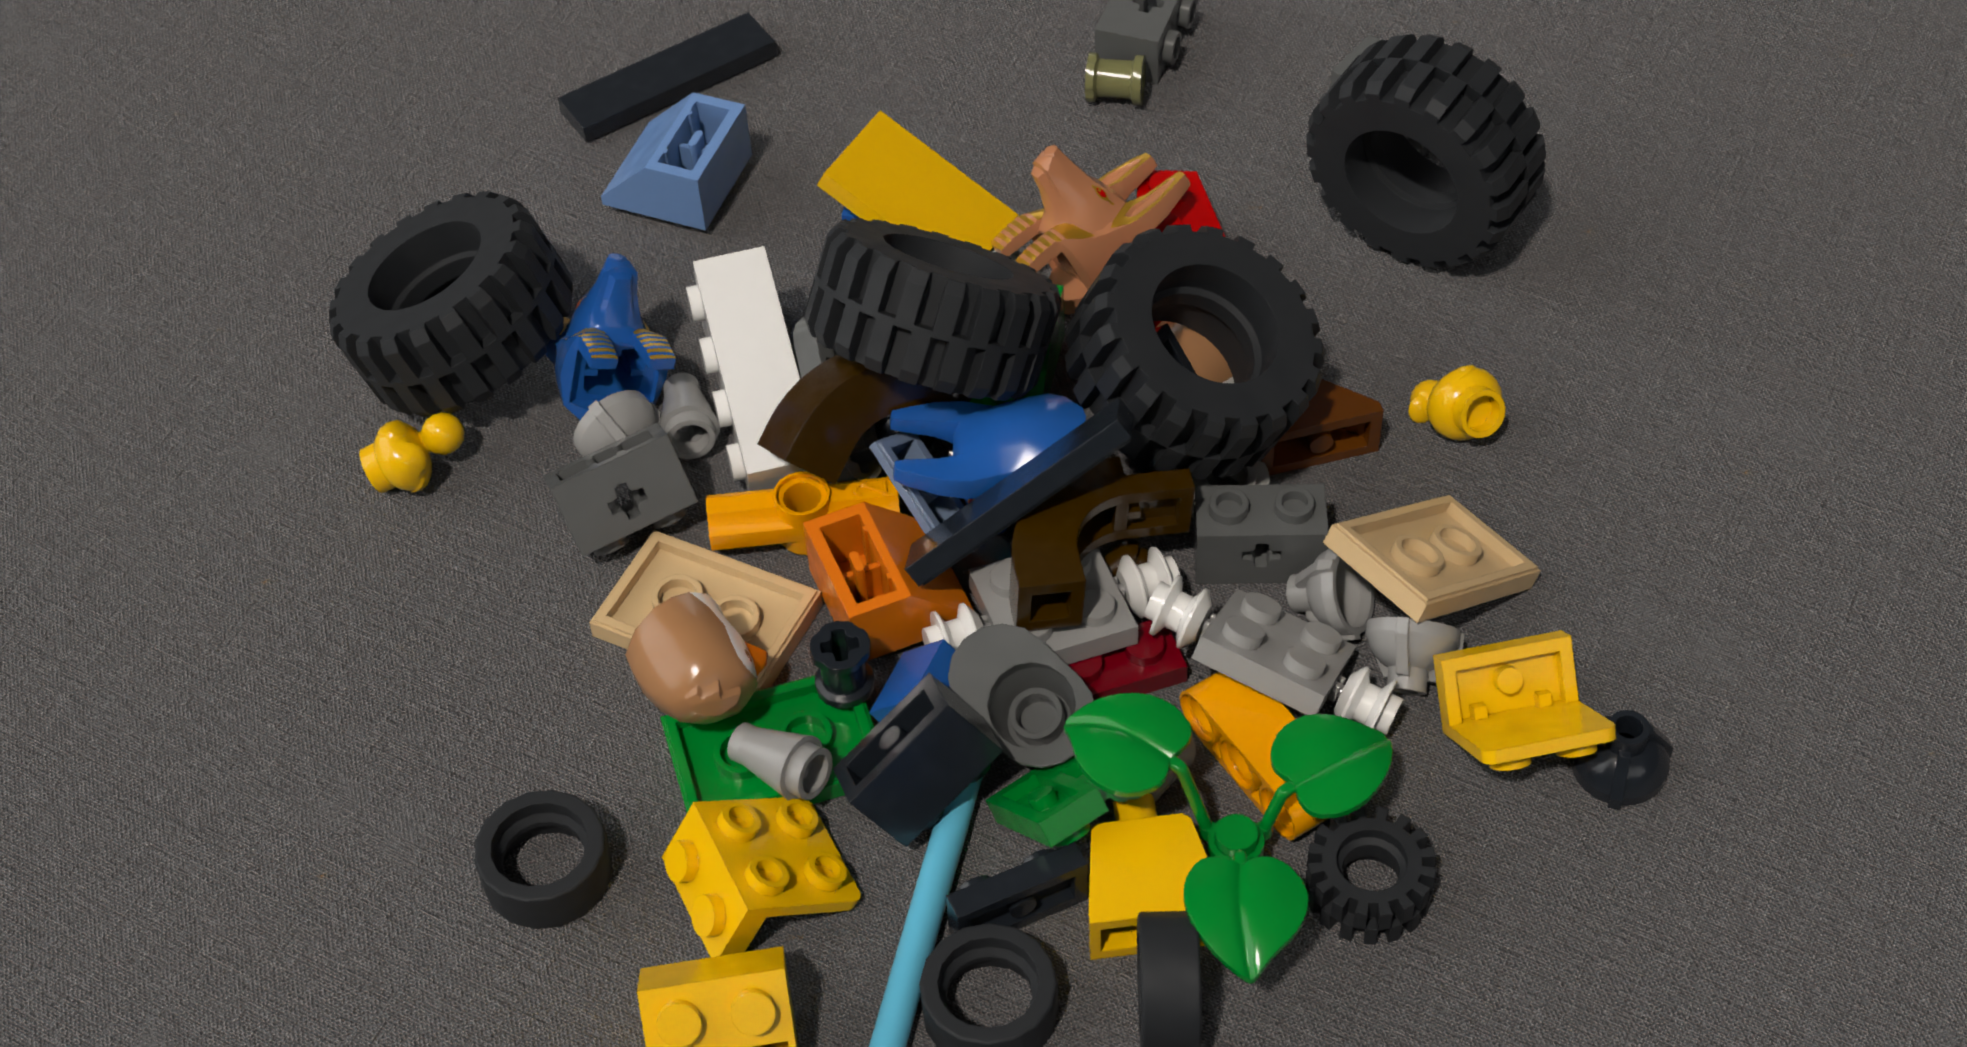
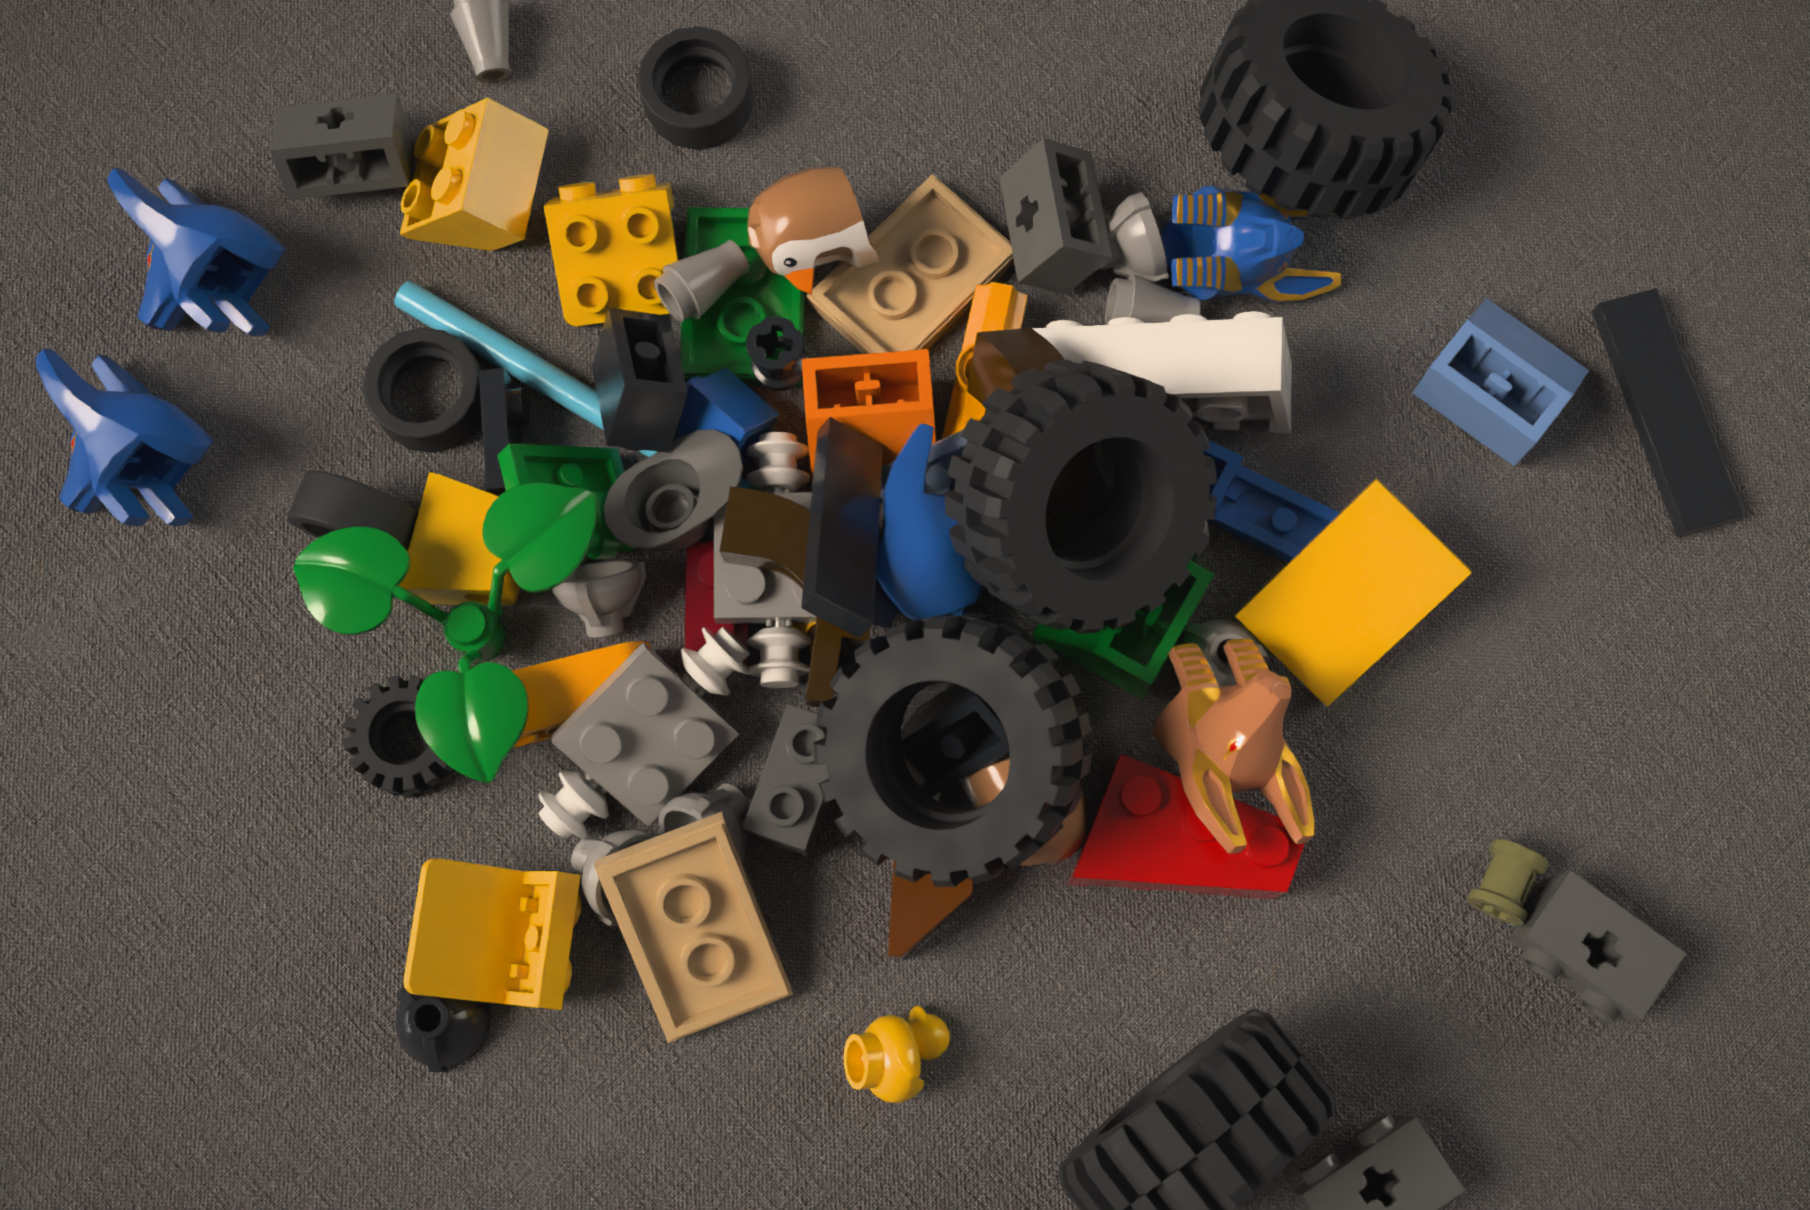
camera: 110 degrees right, 25 degrees up
(402, 453) = (1180, 55): yellow animal -> none

